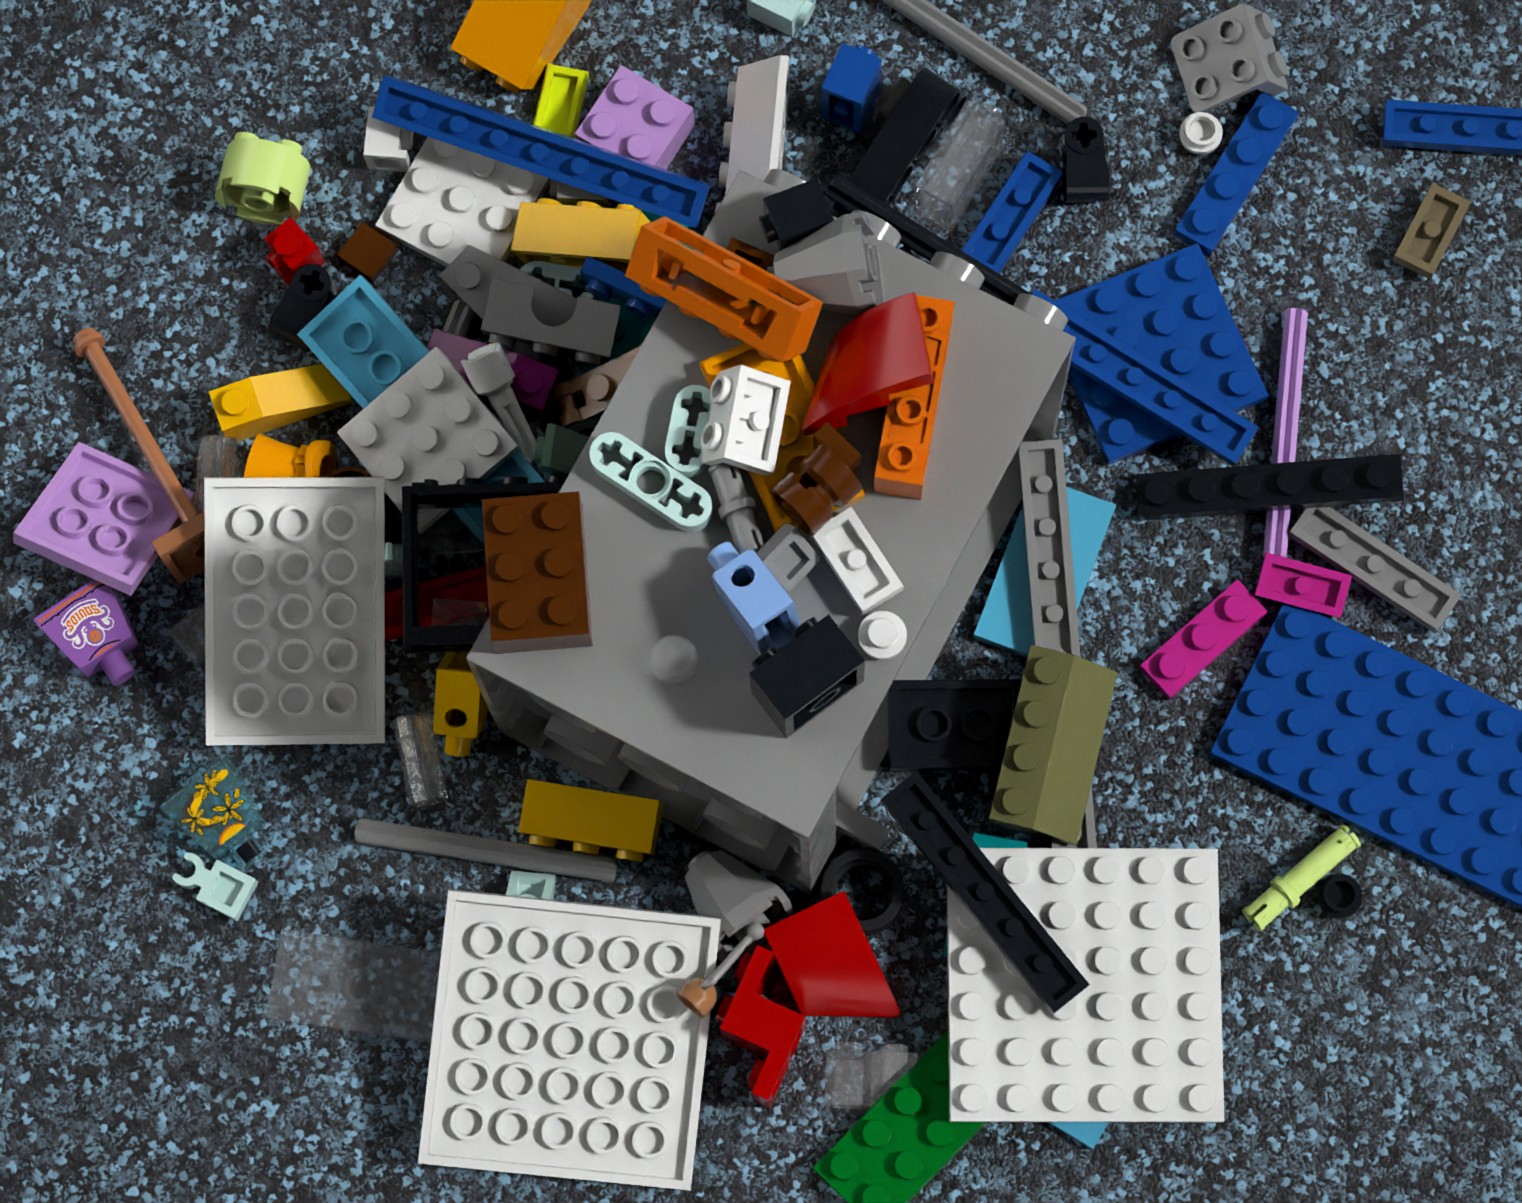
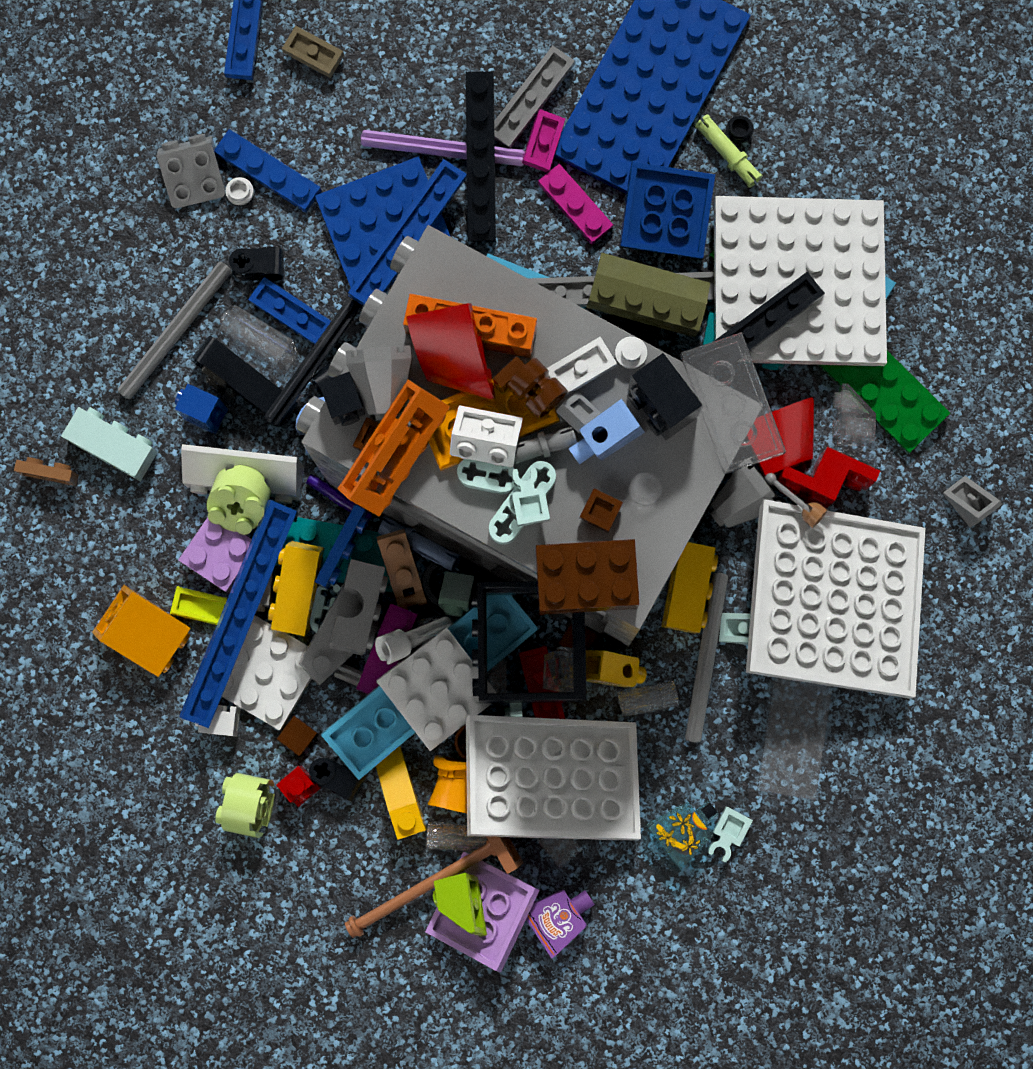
camera: 90 degrees left, 5 degrees up
(113, 484) = (461, 901): none -> lime slope
(639, 594) = (601, 510): none -> reddish brown plate
(643, 485) = (529, 503): none -> light aqua plate
(710, 142) = (238, 499): none -> yellowish green brick
(809, 789) = (733, 403): none -> clear tile
(1193, 776) = (667, 210): none -> blue plate

